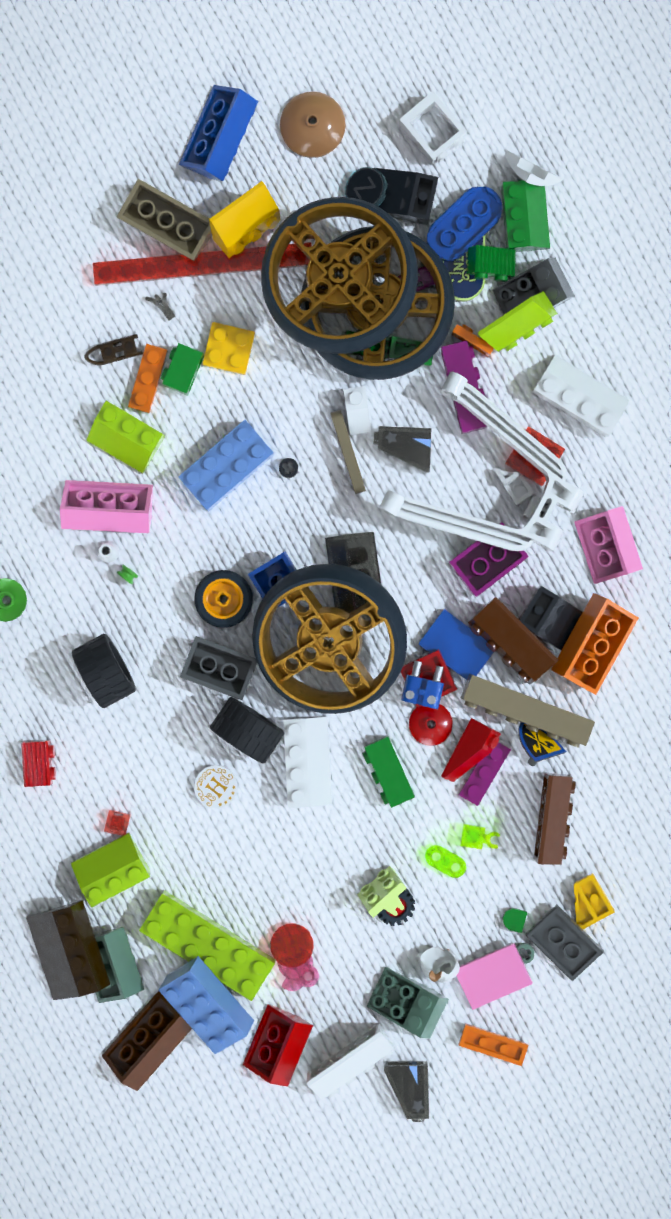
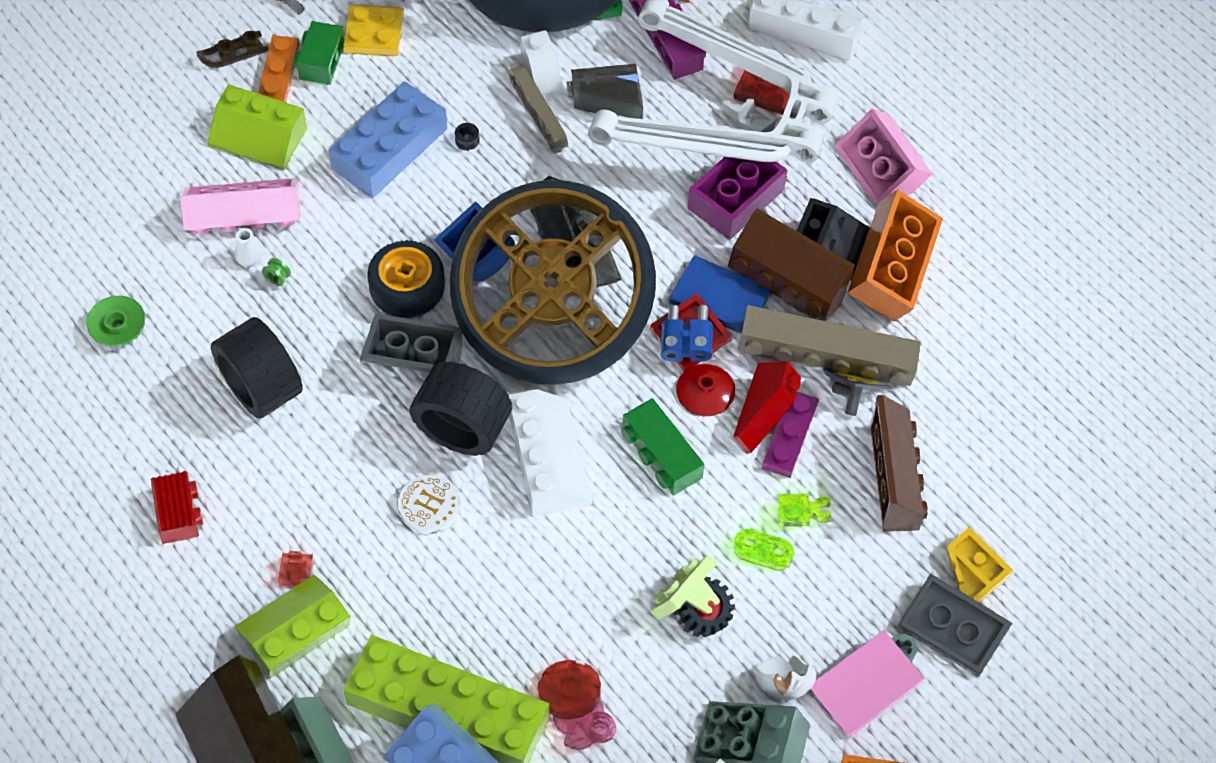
camera: 10 degrees left, 30 degrees down
(514, 919) = (877, 608): green tile -> none

